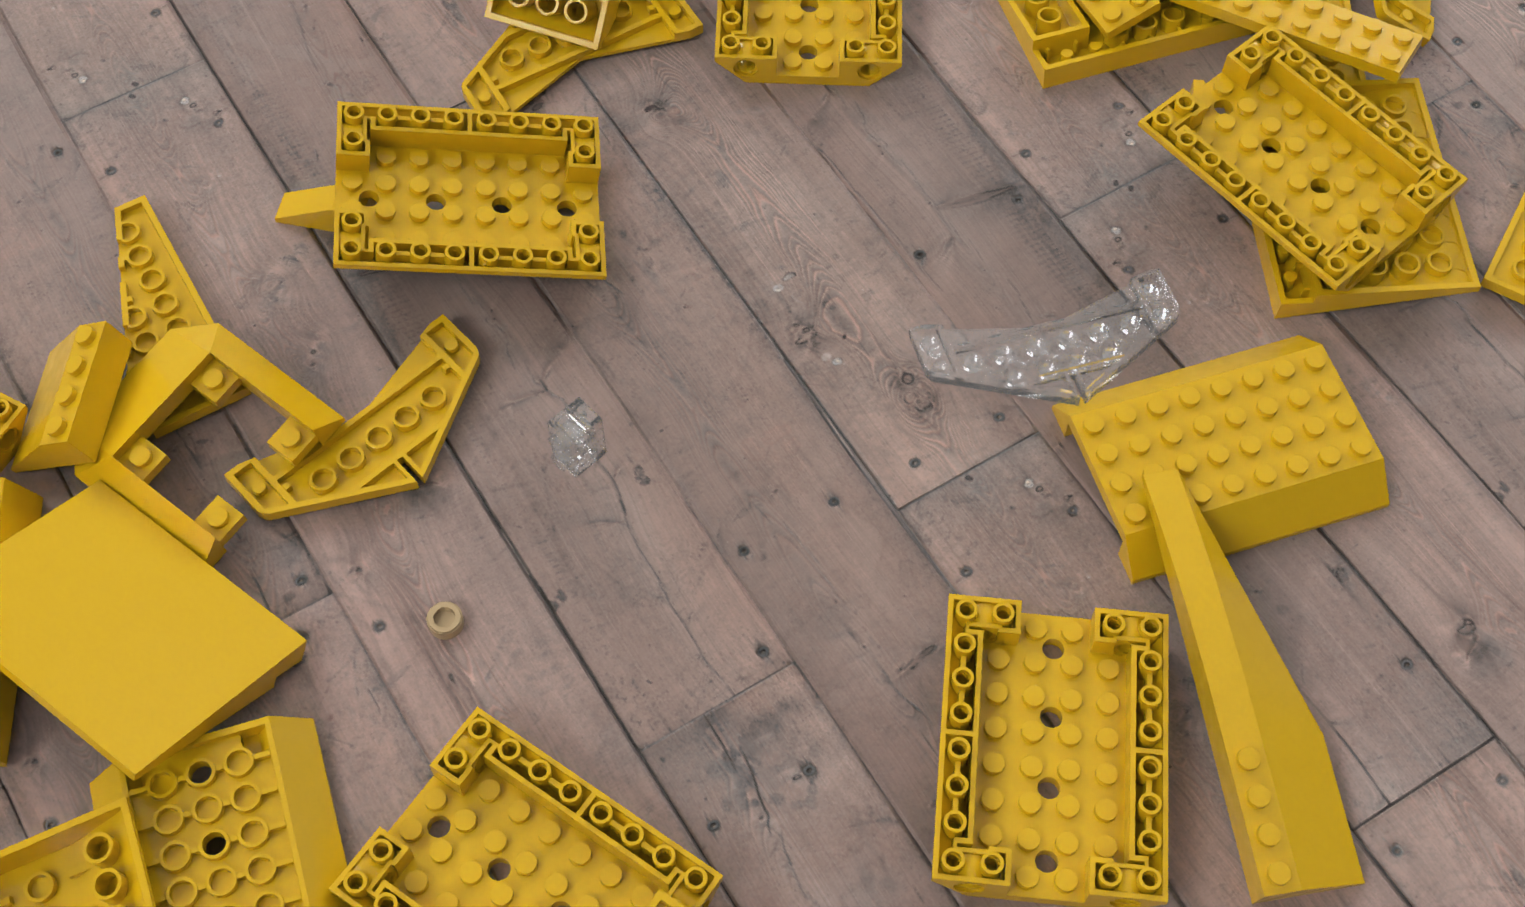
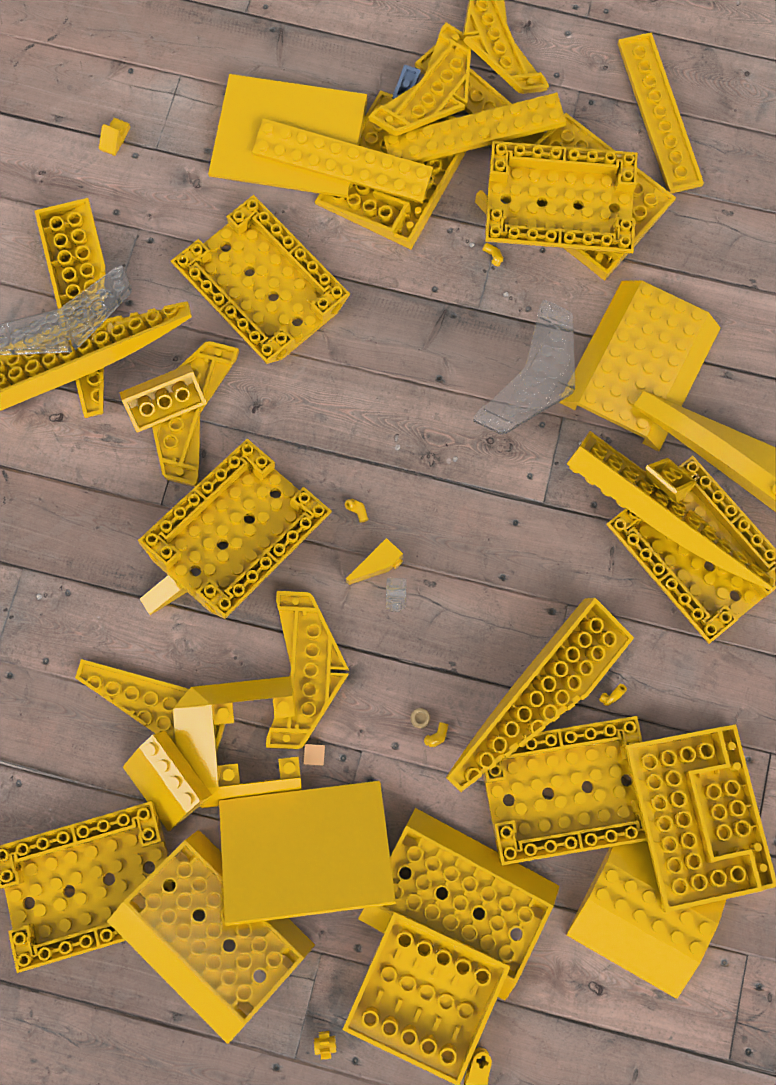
camera: 45 degrees left, 15 degrees up
(270, 541) = (314, 754): none -> light nougat tile
(440, 663) = (437, 738): none -> yellow arm
(604, 388) = (378, 562): none -> yellow slope
(641, 727) = (549, 686): none -> yellow wedge
(648, 310) = (358, 508): none -> yellow arm
(726, 832) = (614, 696): none -> yellow arm
(1041, 628) = (633, 490): none -> yellow wedge
(1092, 599) = (670, 479): none -> yellow slope
(1150, 170) = (495, 252): none -> yellow arm

